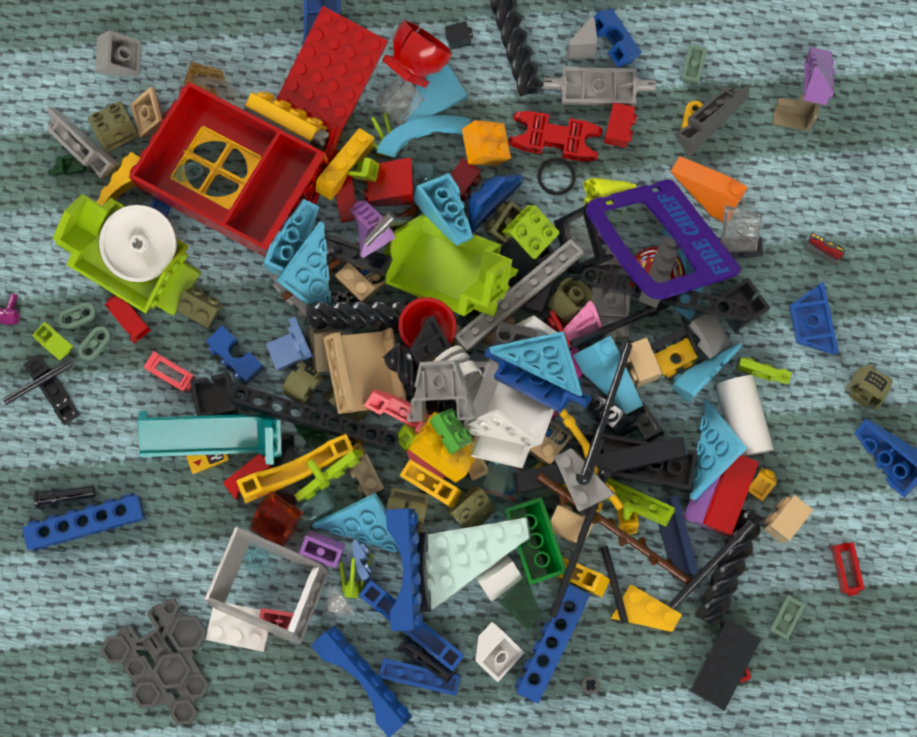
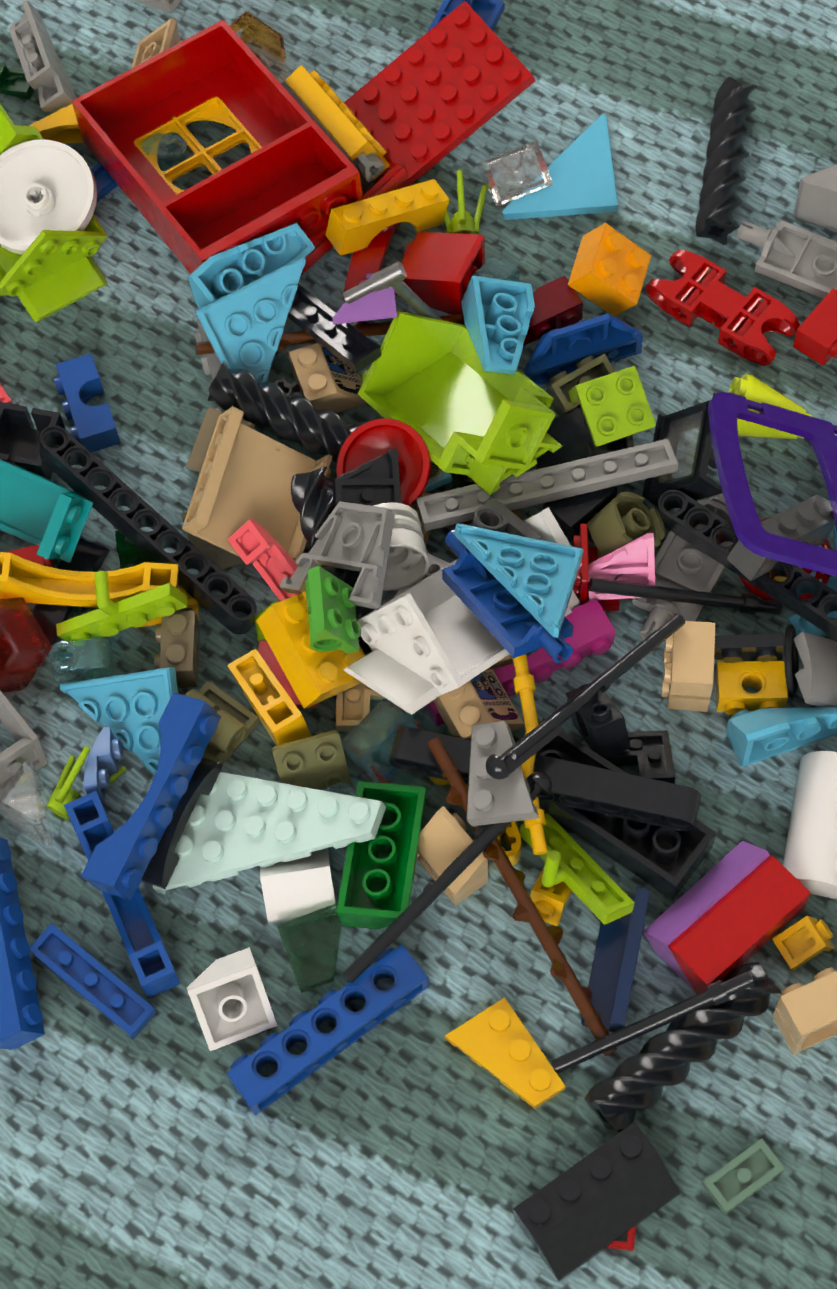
camera: 30 degrees right, 15 degrees down
(113, 126) = (96, 57): olive bracket -> none
(199, 306) = (76, 322): olive bracket -> none
(289, 348) = (171, 428): medium blue bracket -> none
(301, 383) = (158, 475): olive brick -> none
(322, 549) = (52, 719): medium lavender brick -> none
(366, 170) = (413, 234): lime panel -> none
(416, 54) = (567, 113): red plate -> none
(419, 655) = (107, 943): black pin -> none
(420, 127) = (520, 215): medium azure tile -> none
(458, 35) = (646, 124): black brick -> none
(556, 192) = (695, 388): black piece -> none
(584, 685) = (366, 1130): dark grey bush -> none
(587, 579) = (436, 953): yellow slope -> none
(600, 364) = (613, 631): medium azure wedge -> none
(614, 585) = (476, 987): black bar -> none
(716, 449) = (753, 844): medium azure tile -> none

